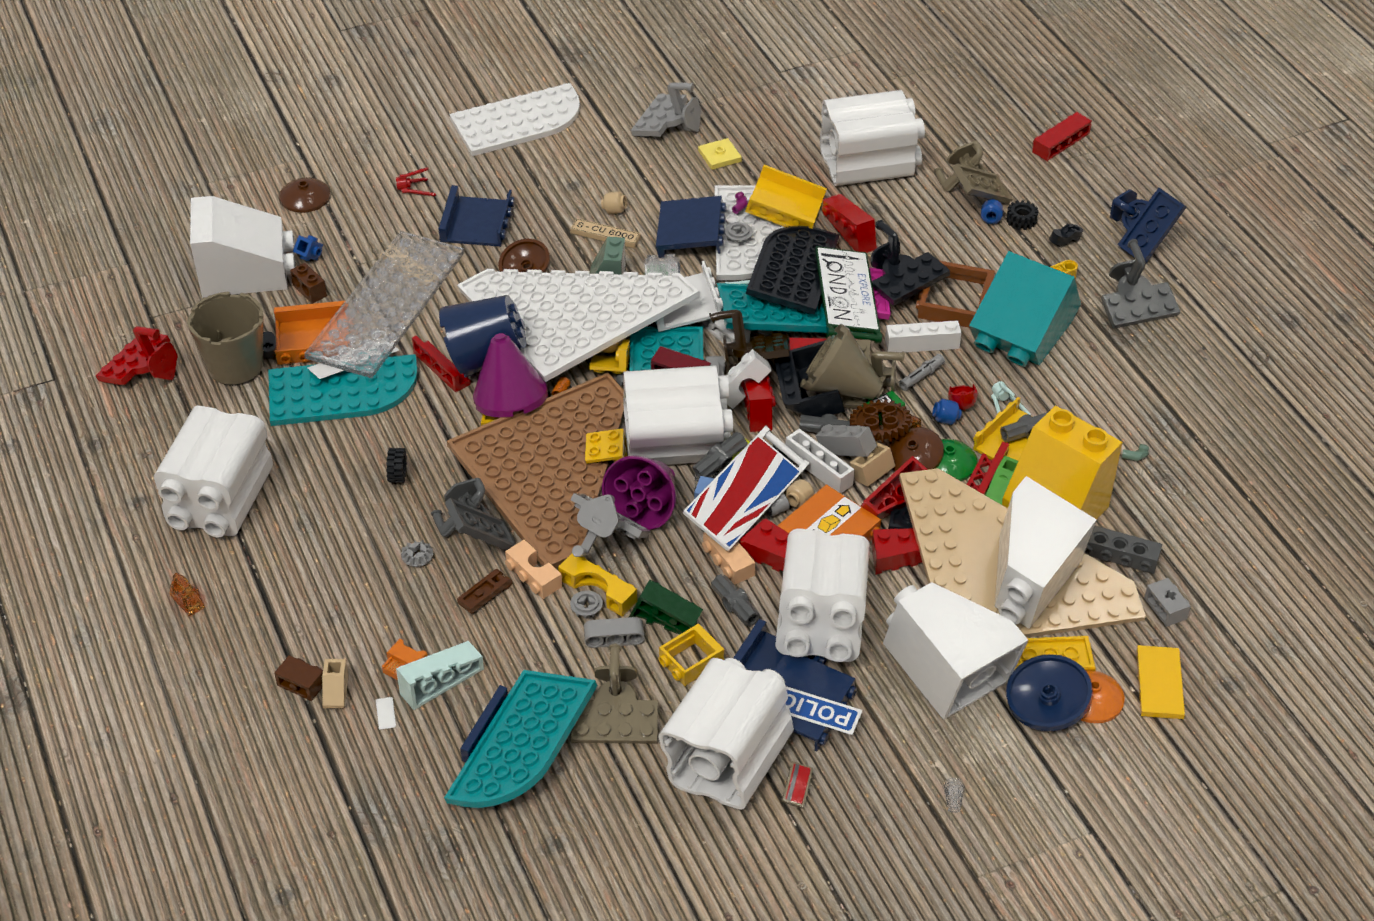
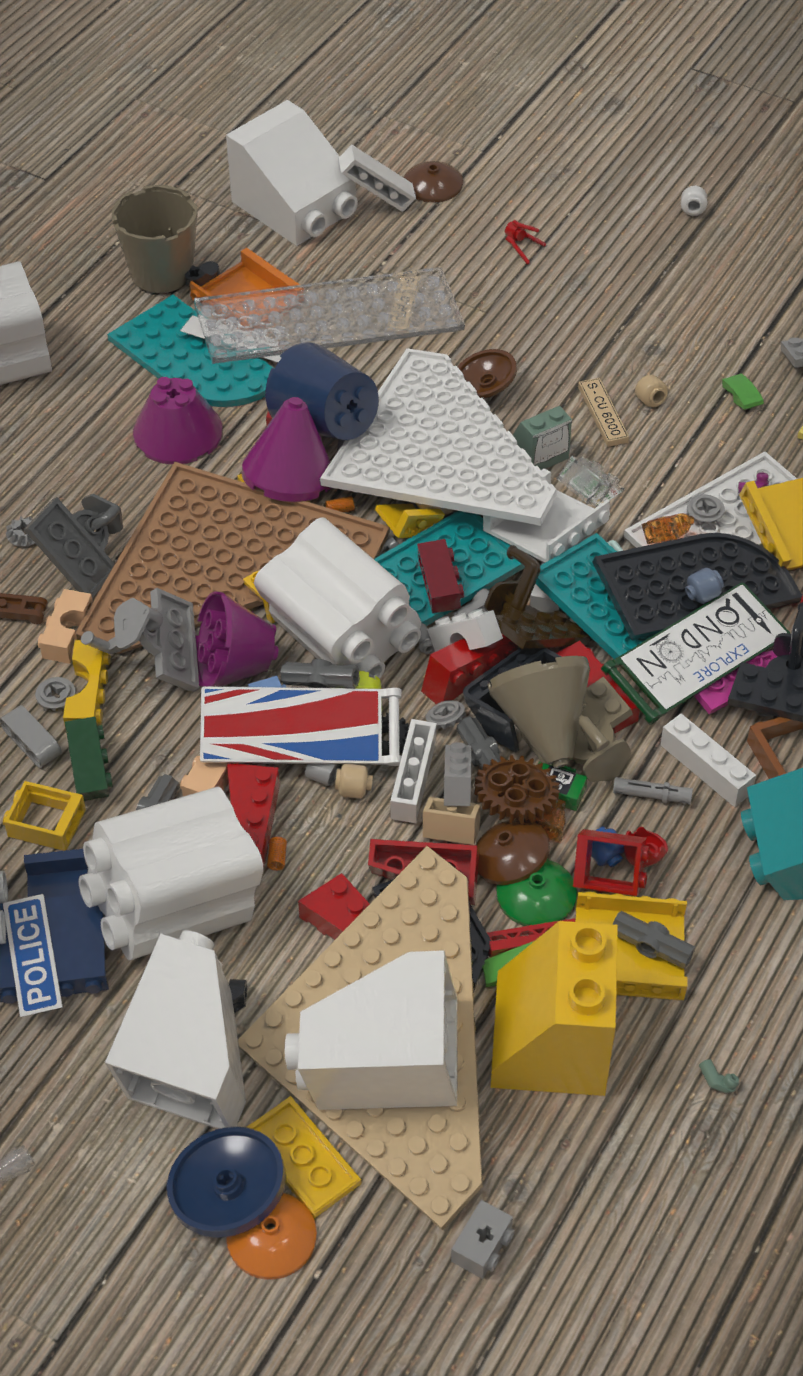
camera: 55 degrees right, 5 degrees up
(144, 354) = (96, 210): red plate -> none
(291, 209) = (376, 178): none -> white brick
(308, 247) = (352, 222): blue brick -> none
(308, 283) = (308, 251): reddish brown brick -> none
(396, 465) = (109, 441): black tyre -> none
(402, 423) = (176, 423): none -> magenta cone
(470, 95) = (694, 200): none -> white head
(475, 219) = (519, 306): dark blue panel -> none
(517, 119) = (705, 254): white plate -> none
(657, 167) = (743, 391): none -> bright green slope
(691, 224) = (675, 466): dark blue panel -> none
(742, 254) = (667, 528): none -> clear orange piece
(785, 421) = (439, 714): none -> light grey gear
(808, 259) = (704, 585): none -> sand blue head
(832, 515) = (319, 835): orange panel -> none
(952, 418) = (583, 862): none -> red window
(1002, 392) = (690, 885): light aqua plant -> none
(1123, 549) = (523, 1097): dark grey brick -> none
(1160, 682) = (347, 1299): yellow tile -> none

